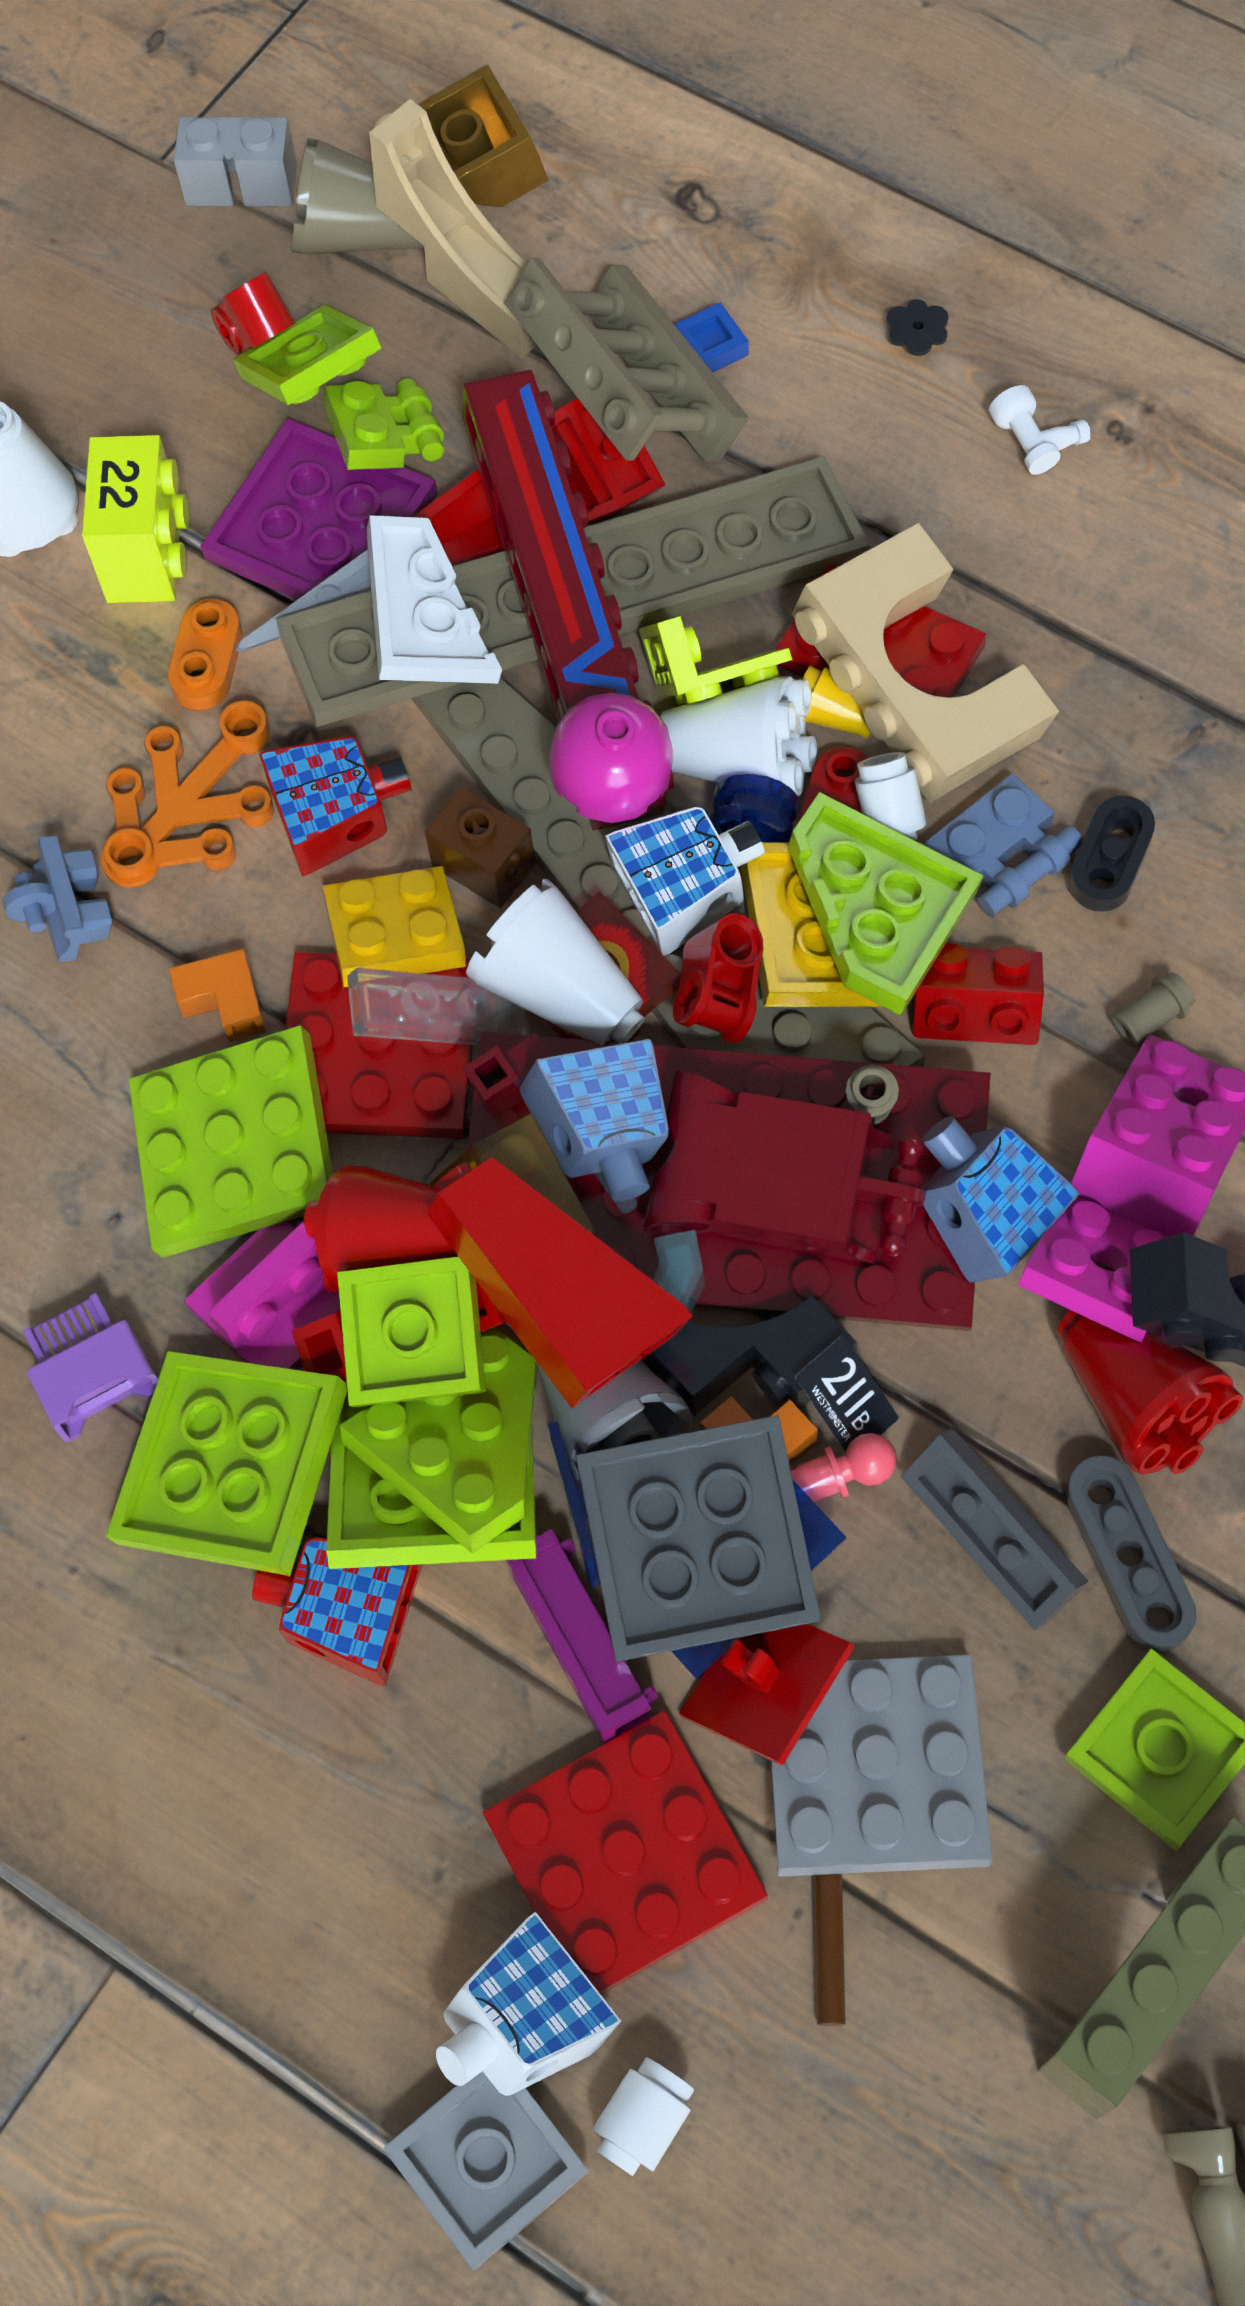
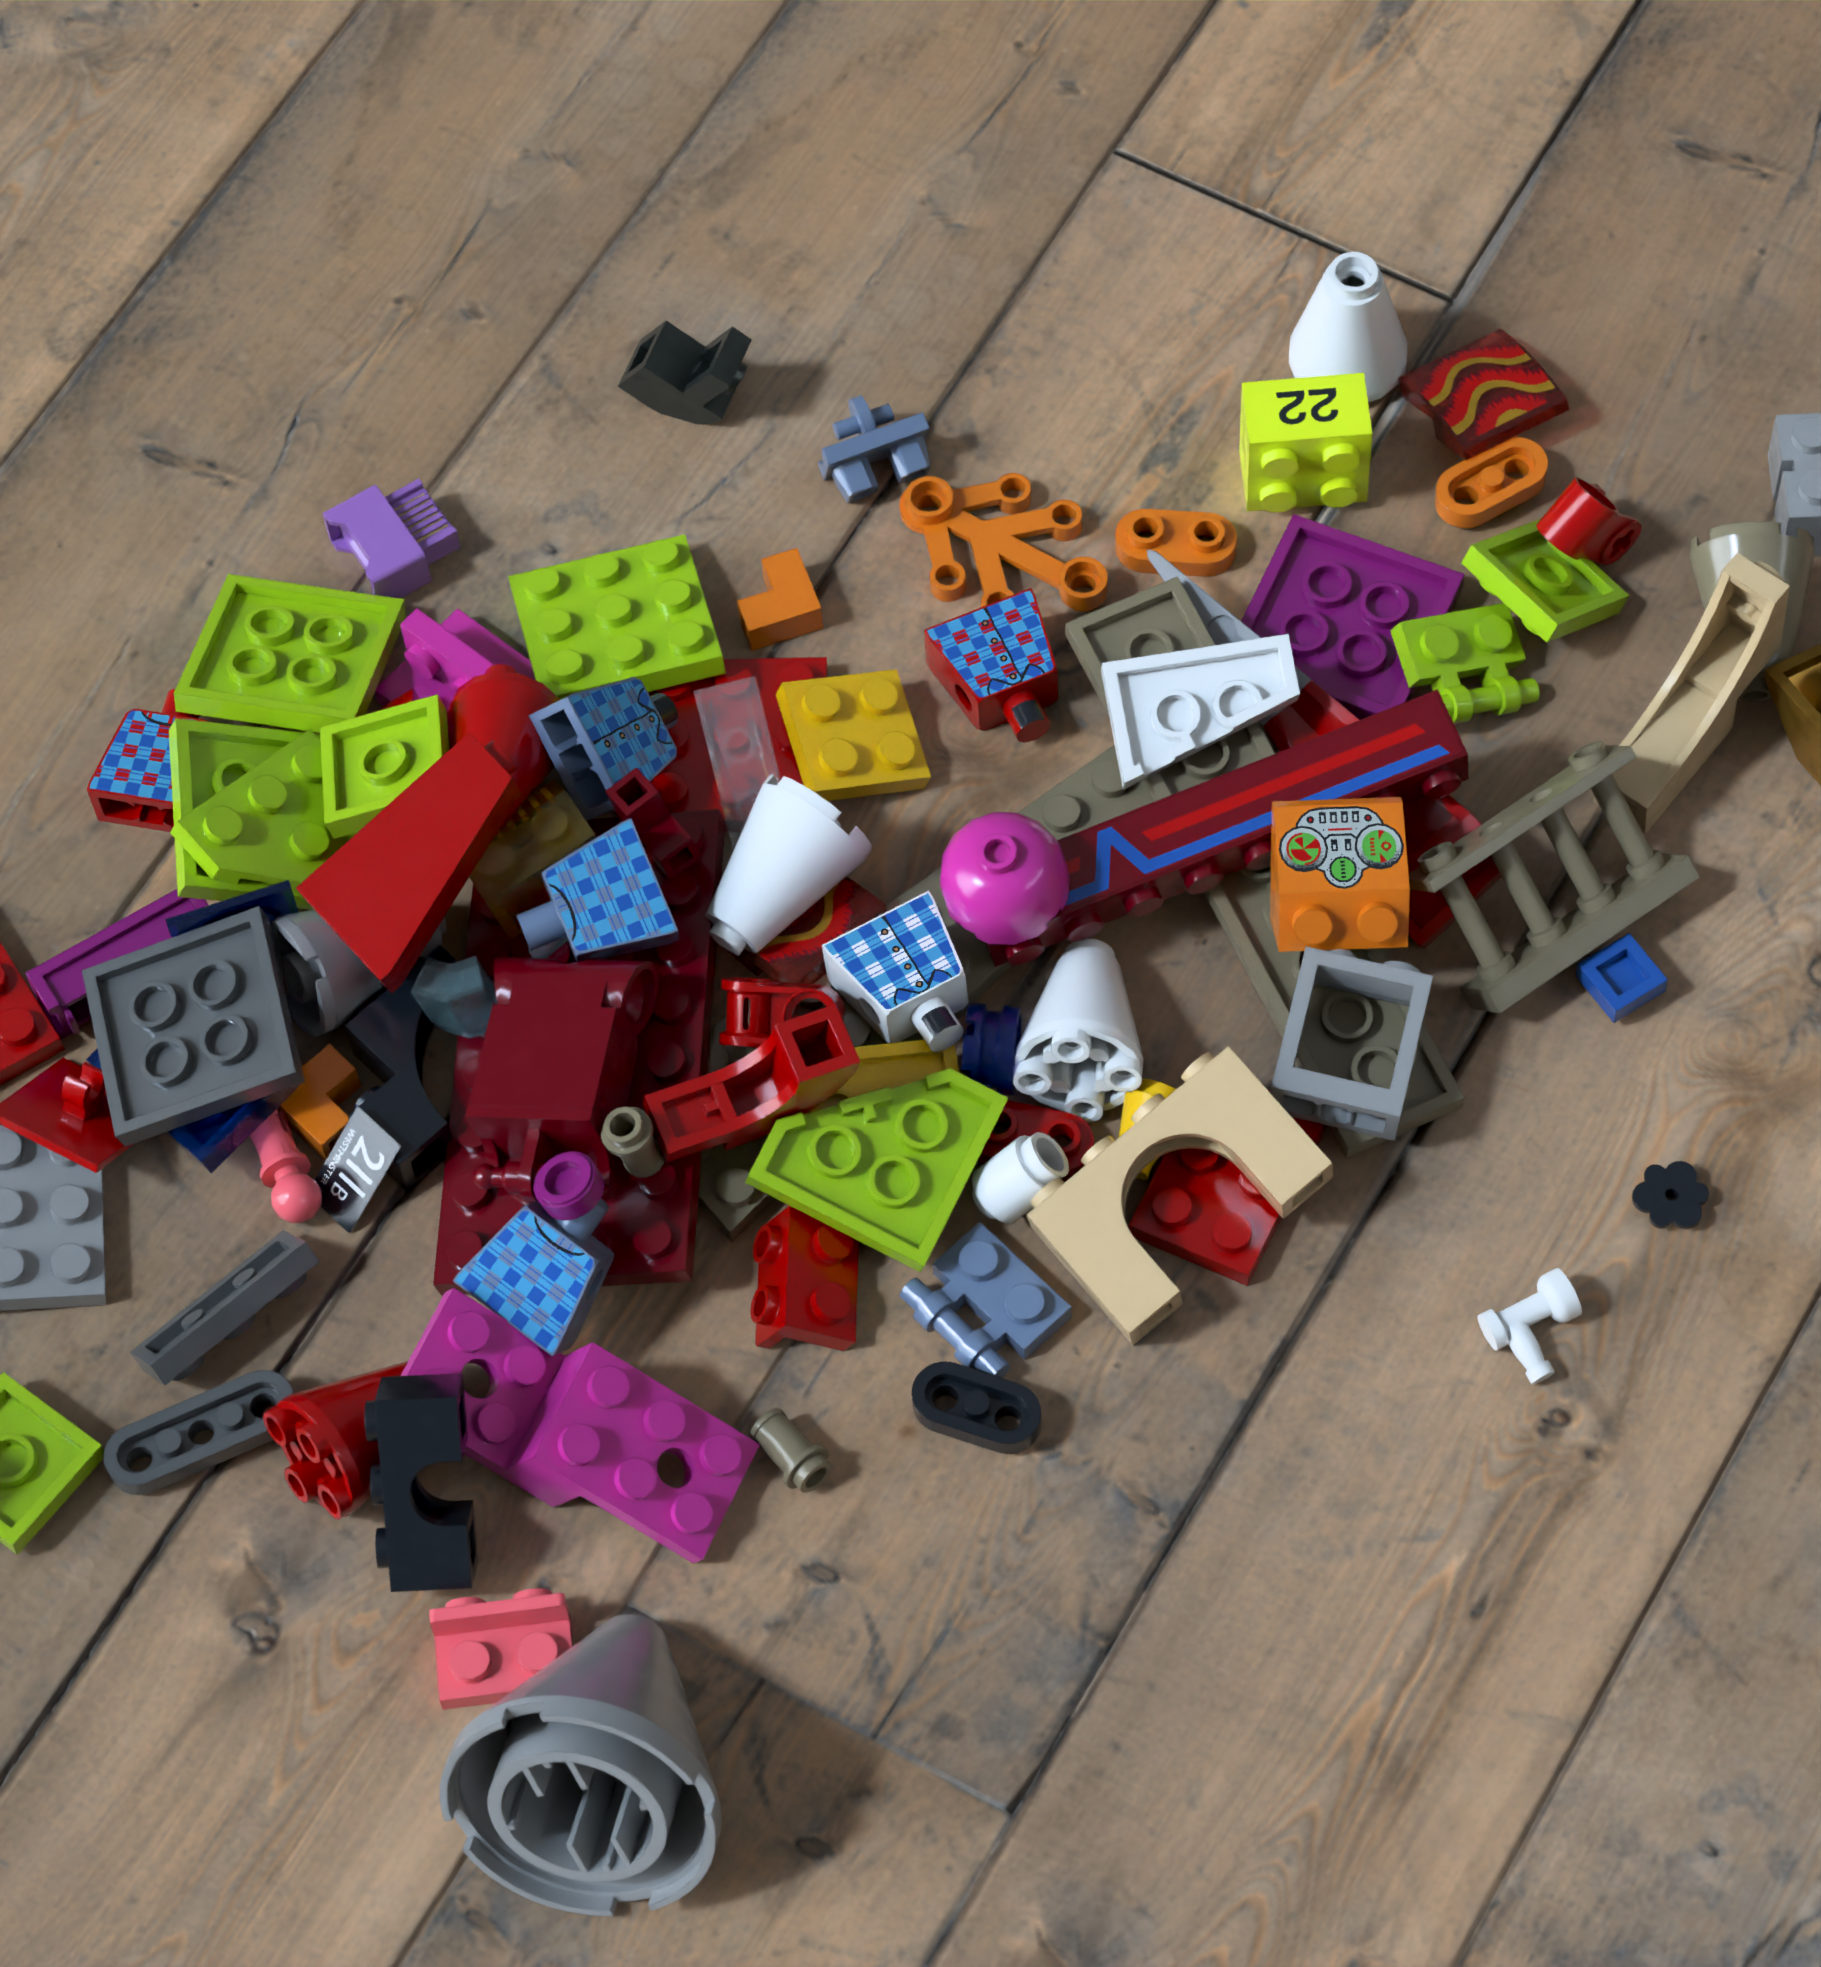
camera: 85 degrees right, 5 degrees down
(92, 391) = (1483, 394): none -> slope
(190, 400) = (1486, 482): none -> orange plate
(403, 1122) = (604, 736): none -> torso
(481, 847) = (943, 798): reddish brown head -> none
(634, 493) = (1339, 874): none -> orange slope
(672, 656) = (1146, 968): neon yellow bracket -> none
(764, 554) = (1336, 1099): none -> light grey window
(815, 974) = (784, 1076): none -> red arch
(937, 1138) = (569, 1186): none -> magenta tile

